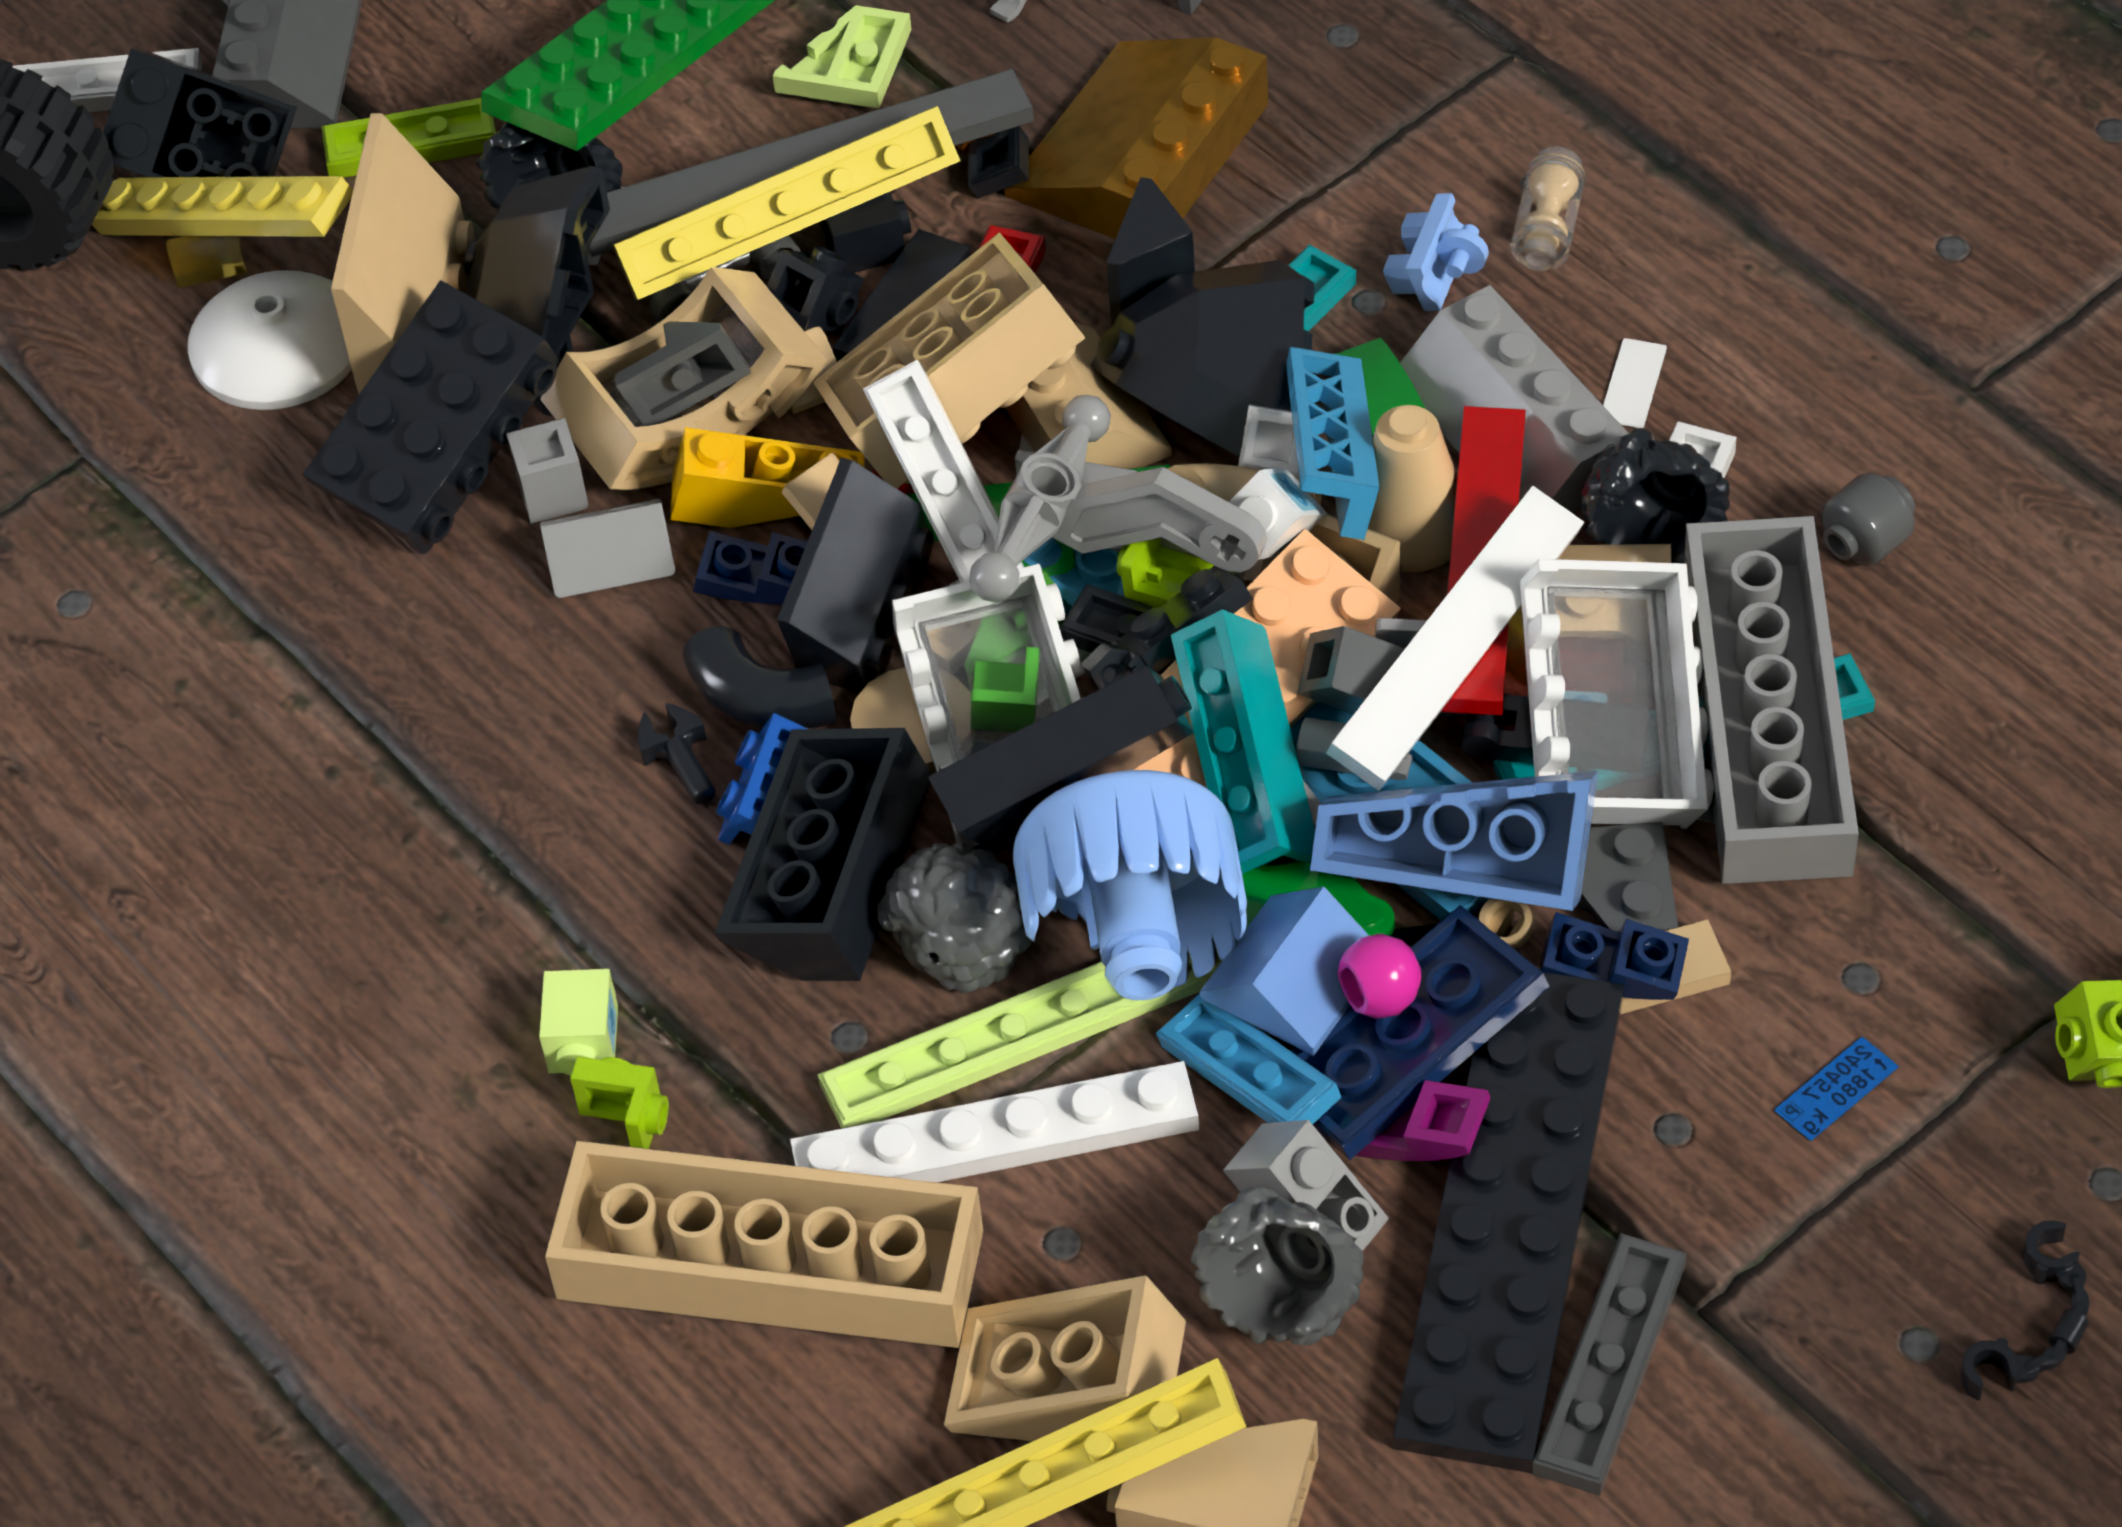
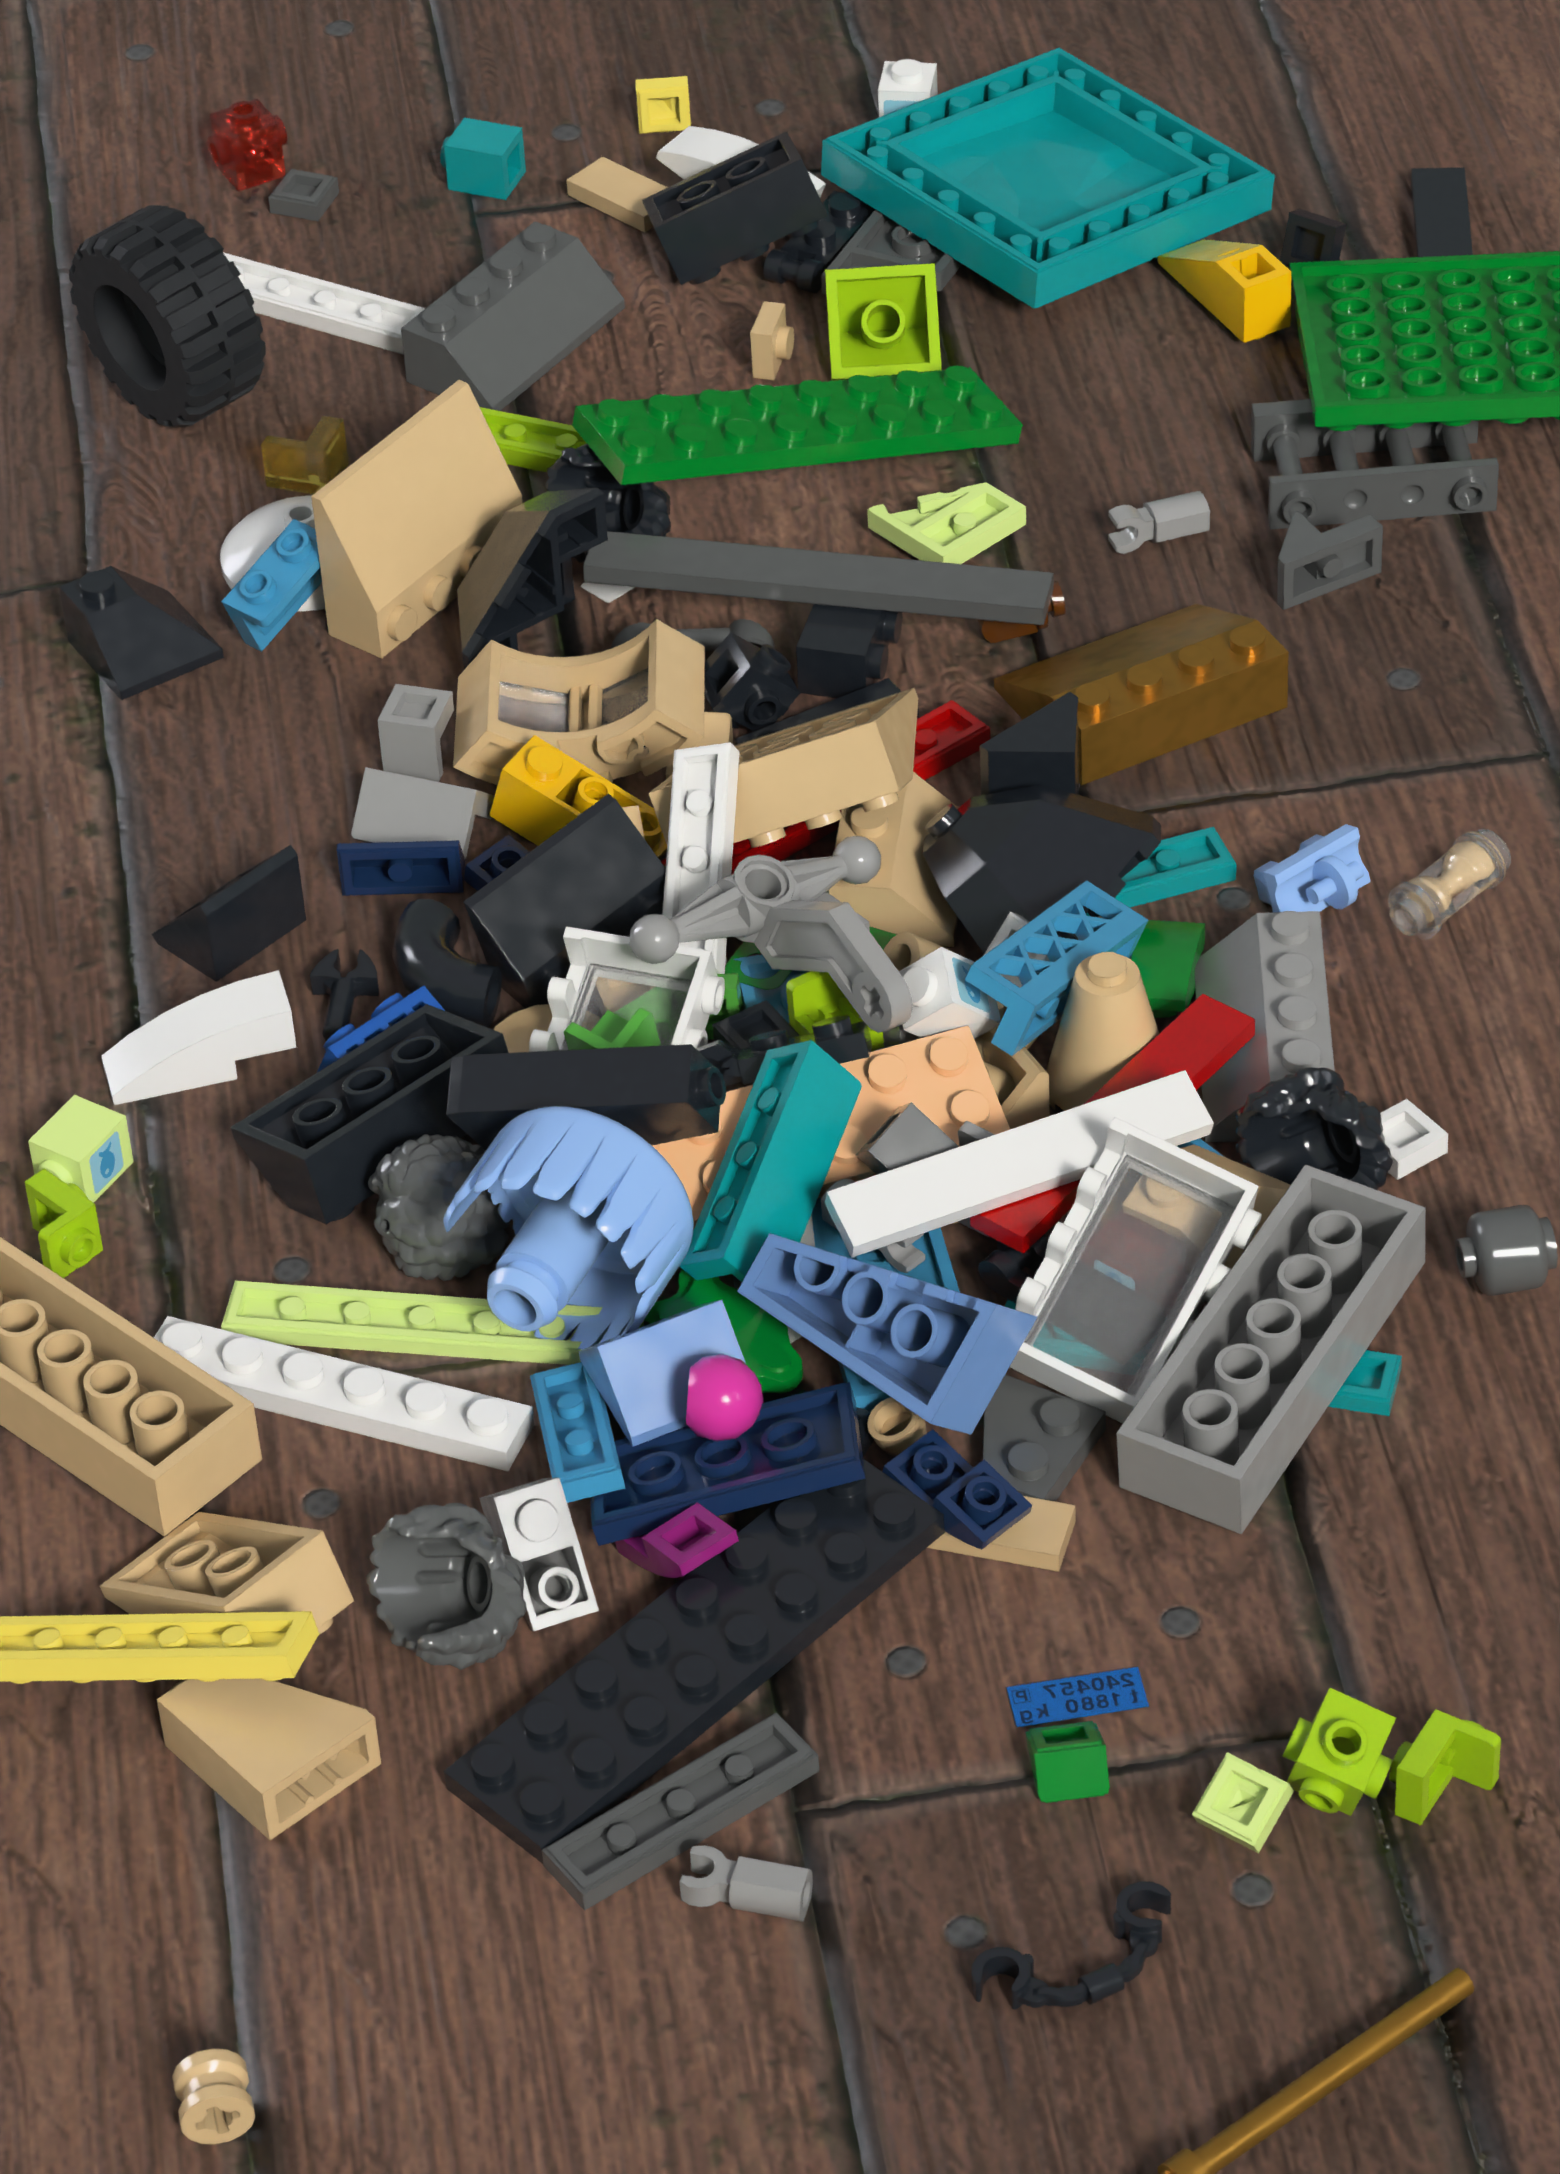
camera: 30 degrees right, 10 degrees down
(187, 491) = (133, 631): none -> black slope
(192, 123) = (355, 358): black slope -> none
(223, 206) = (314, 418): light yellow plate -> none
(308, 381) = (275, 586): none -> dark azure bracket
(434, 416) = (348, 647): black bracket -> none
(520, 723) = (239, 917): none -> black slope
(598, 860) = (201, 1040): none -> white slope
(637, 609) = (401, 867): none -> dark blue slope
(687, 370) = (568, 693): dark grey slope -> none
(785, 203) = (771, 598): light yellow plate -> none
(998, 162) = (1002, 653): black tile -> none
(1634, 381) = (1410, 1060): white sticker -> none
(1725, 1399) = (747, 1884): none -> light grey bar
(1881, 1148) = (1068, 1761): none -> green slope
(2054, 1113) = (1242, 1802): none -> yellowish green tile

